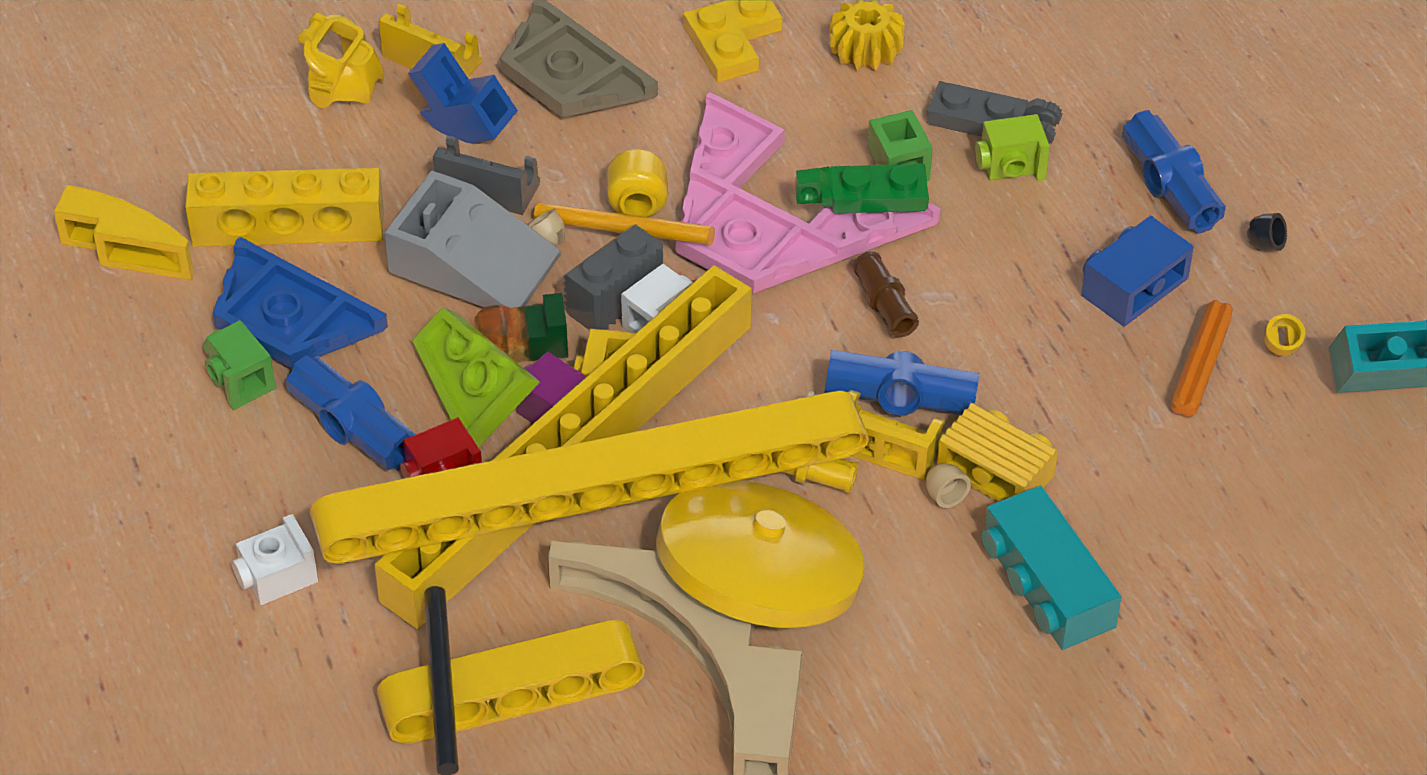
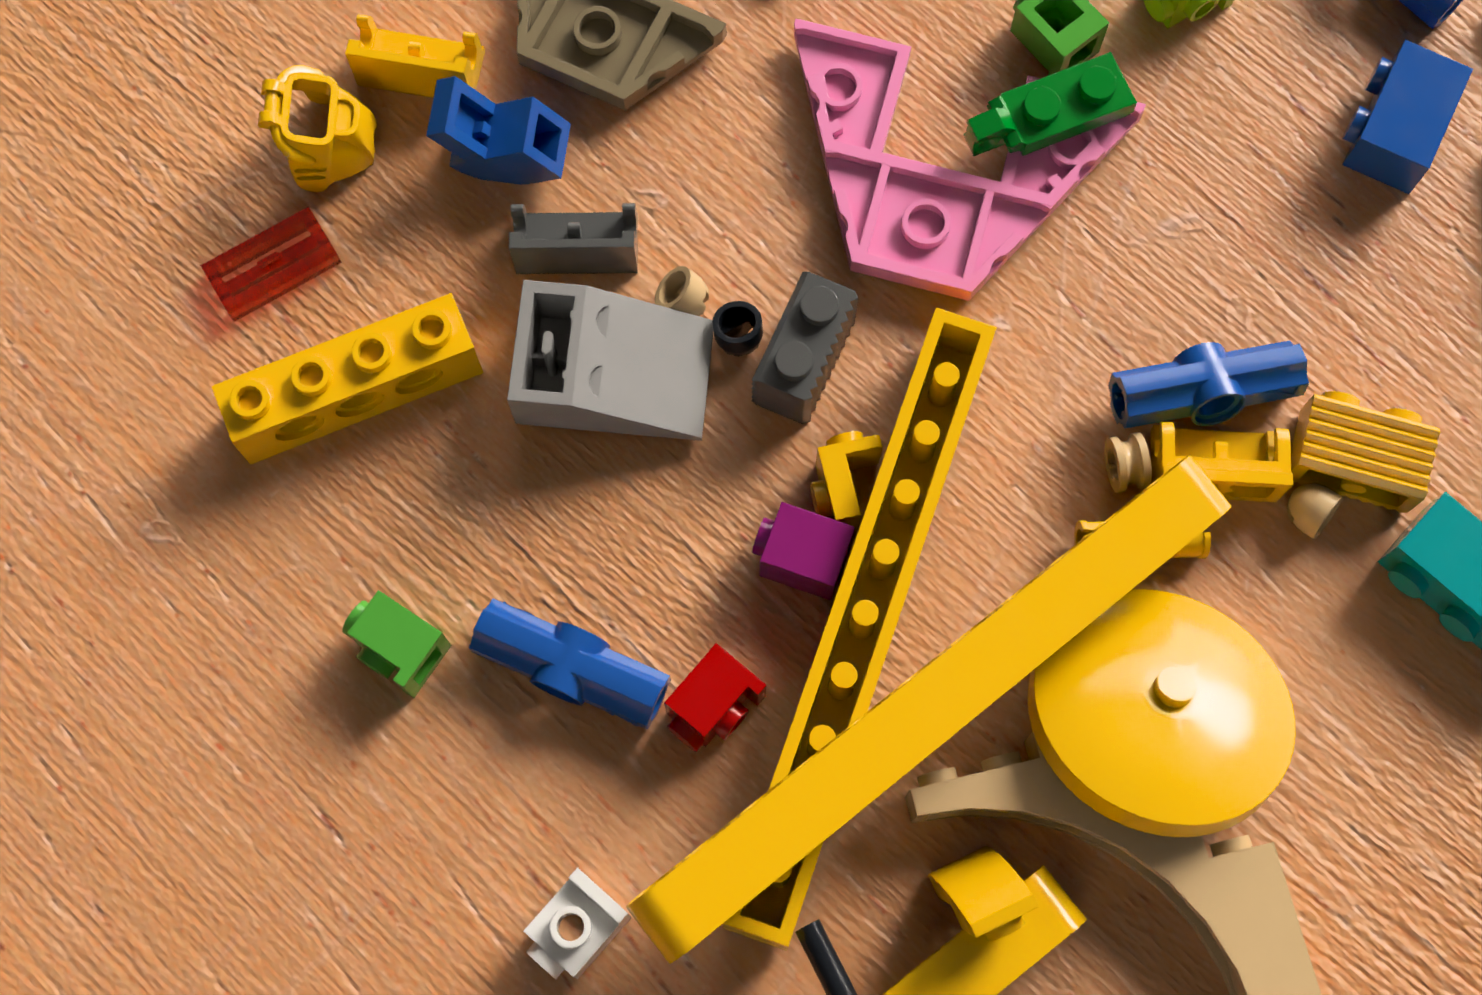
camera: 20 degrees left, 25 degrees up
(121, 234) = (155, 490): yellow slope -> none
(267, 136) = (282, 281): none -> clear red tile
(291, 308) = (418, 530): blue wing -> none
(471, 374) = (695, 559): lime wing -> none
(527, 331) = (725, 463): leg -> none
(571, 253) = (732, 326): none -> black hinge
(572, 616) = (984, 894): none -> yellow slope
(620, 222) = (783, 257): light orange bar -> none
(637, 183) = (769, 192): yellow head -> none
(651, 296) = (873, 368): white brick -> none
(885, 294) = (1129, 251): reddish brown pin -> none

